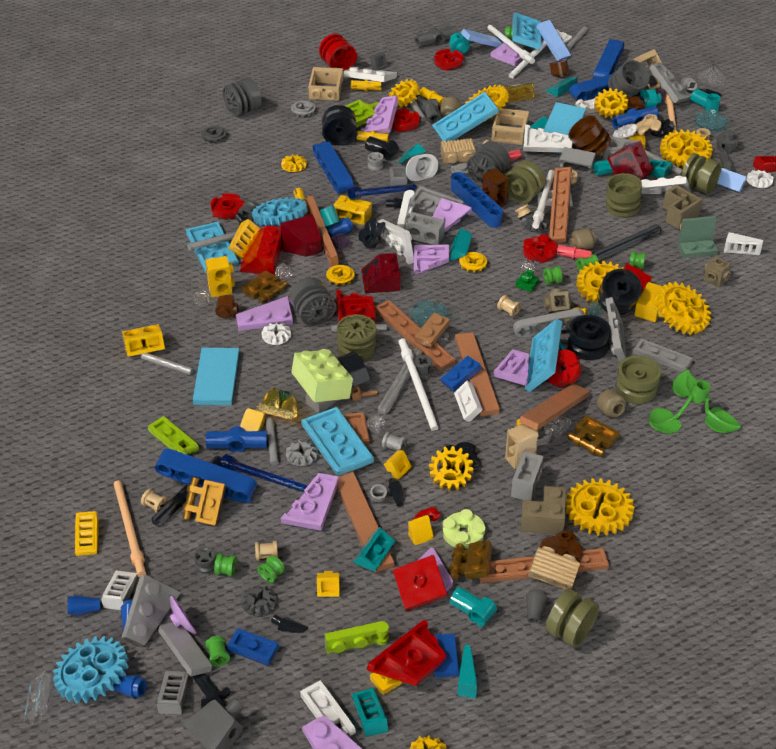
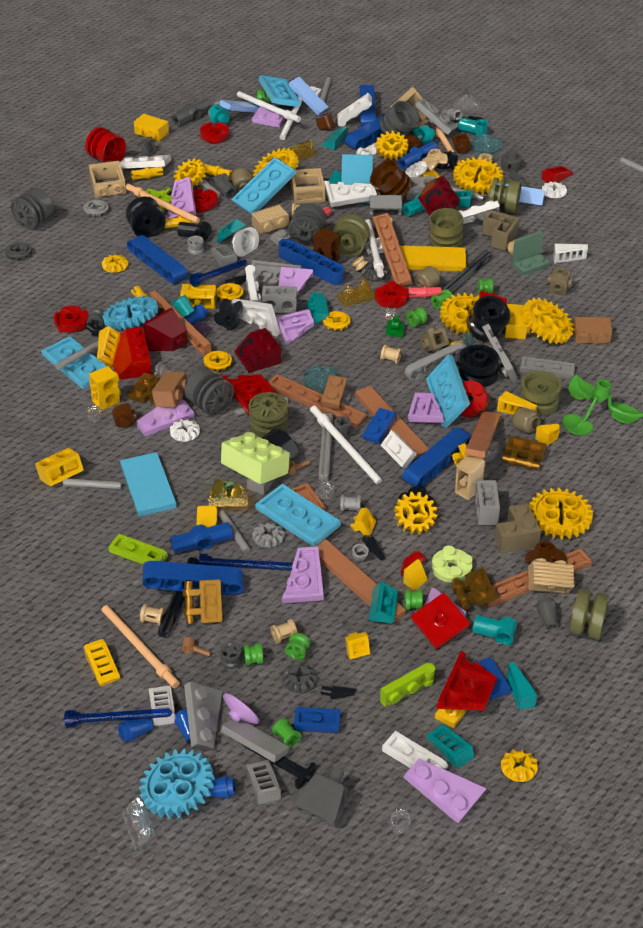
camera: 20 degrees left, 0 degrees up
(34, 579) = (73, 718): none -> clear blue piece
(173, 541) = (189, 647): none -> medium nougat hand
(277, 291) = (169, 389): none -> medium nougat brick
(346, 101) = (140, 192): none -> light nougat bar
(380, 212) = (224, 290): none -> yellow gear
(391, 43) = (151, 127): none -> yellow brick
(405, 553) = (413, 599): none -> bright green wheel
(497, 420) = (435, 459): none -> blue beam
(511, 241) = (356, 296): none -> clear yellow tile
(591, 61) = (354, 109): none -> white plate
(601, 221) = (437, 257): none -> yellow tile
(603, 381) = (510, 403): none -> yellow slope
(627, 422) = (547, 433): none -> yellow slope
(684, 114) = (461, 143): none -> reddish brown plate
(727, 328) = (592, 330): none -> medium nougat brick

